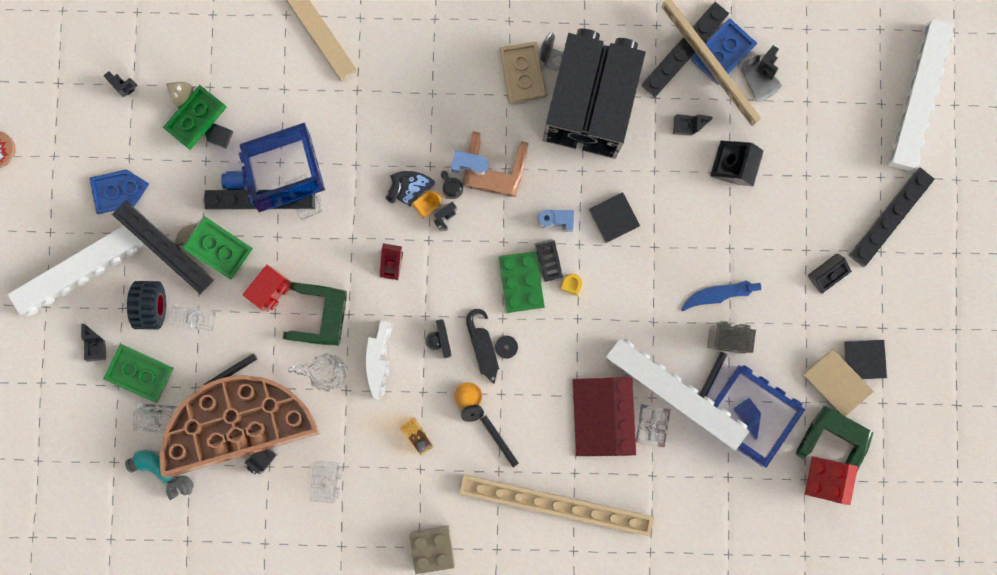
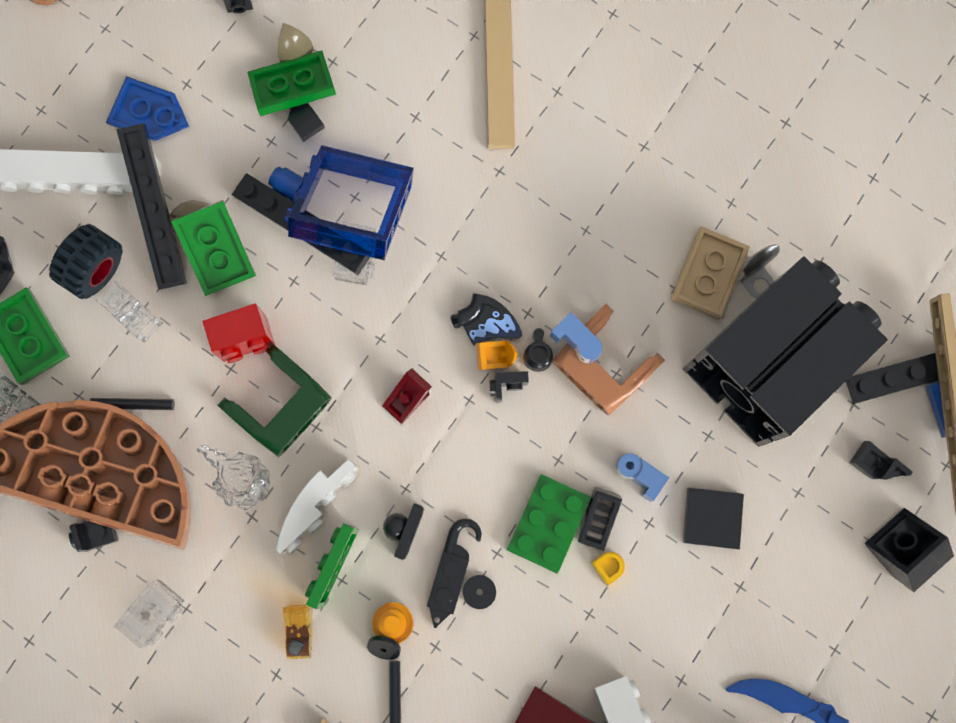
camera: 30 degrees right, 5 degrees down
(411, 386) = (330, 566): none -> green plate

